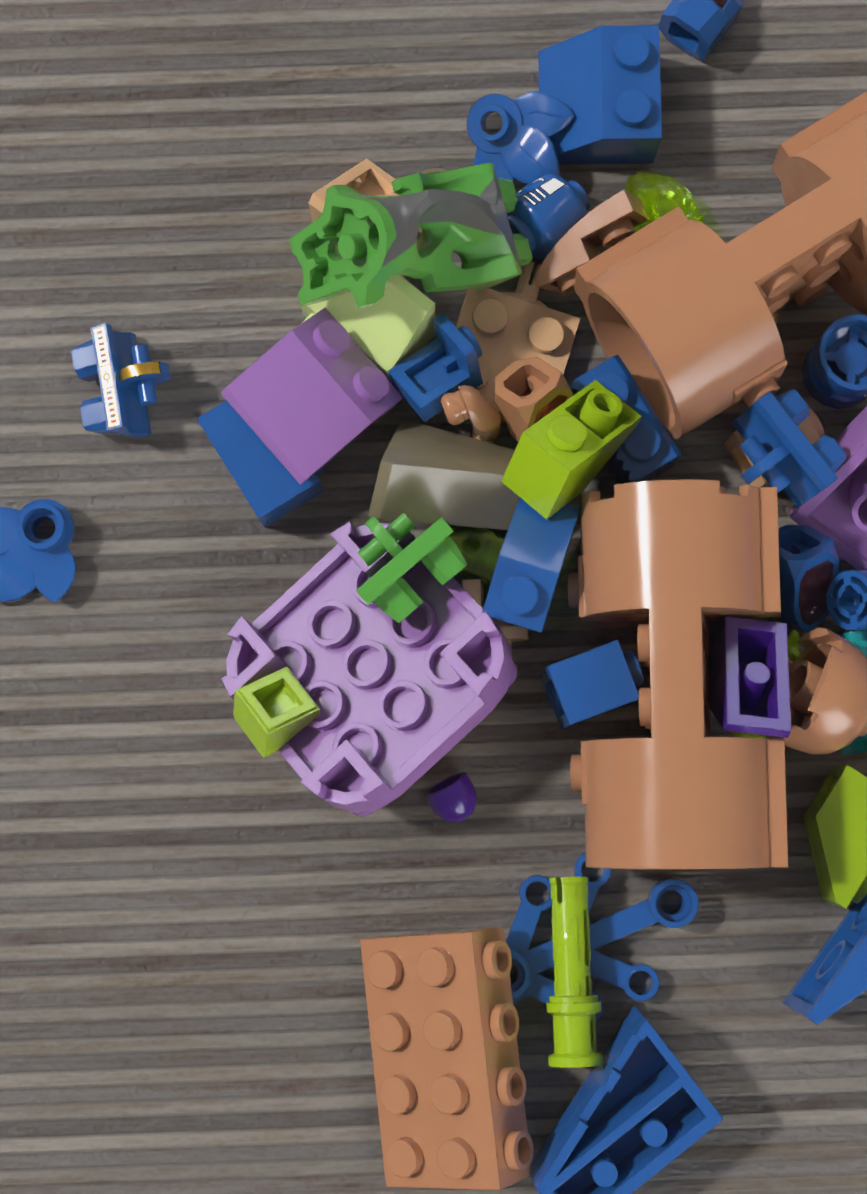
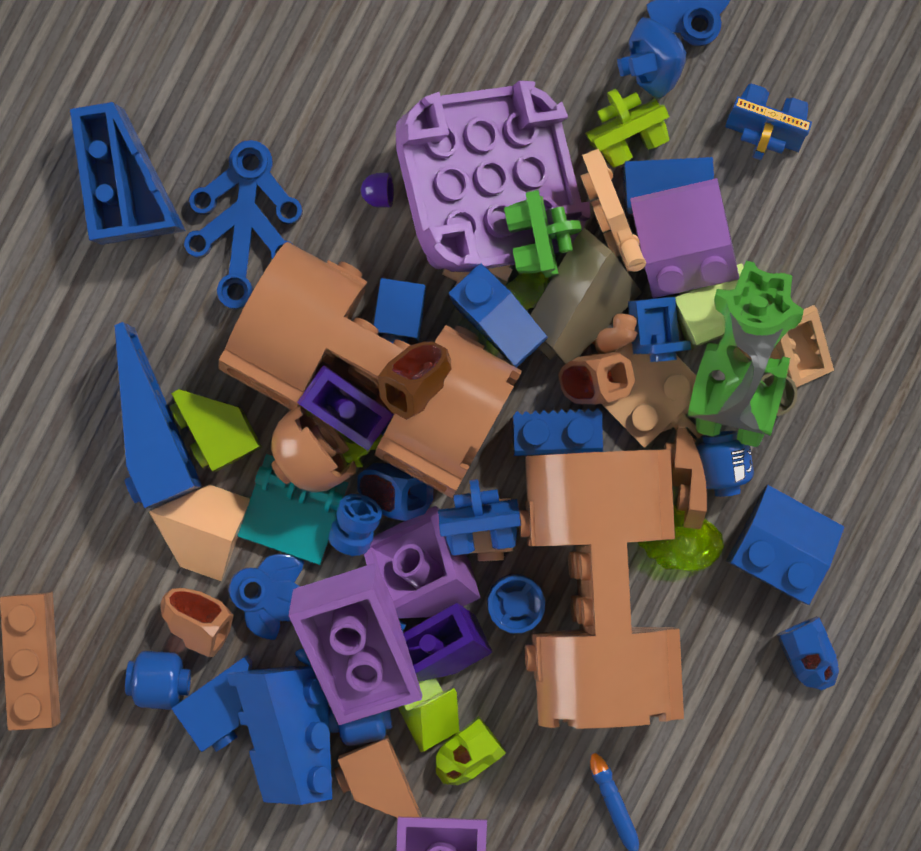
camera: 120 degrees right, 5 degrees up
(113, 554) = (654, 58): none -> blue piece
(209, 549) = (645, 120): none -> lime hips
(273, 710) = (495, 103): lime slope -> none
(331, 495) = (610, 212): none -> light nougat plate
(446, 1060) = (219, 94): nougat bracket -> none
(523, 143) = (782, 475): blue plate -> none
(568, 448) = (556, 379): lime slope -> none
(573, 1001) = (210, 192): lime pin -> none
(683, 600) = (414, 378): none -> reddish brown rock

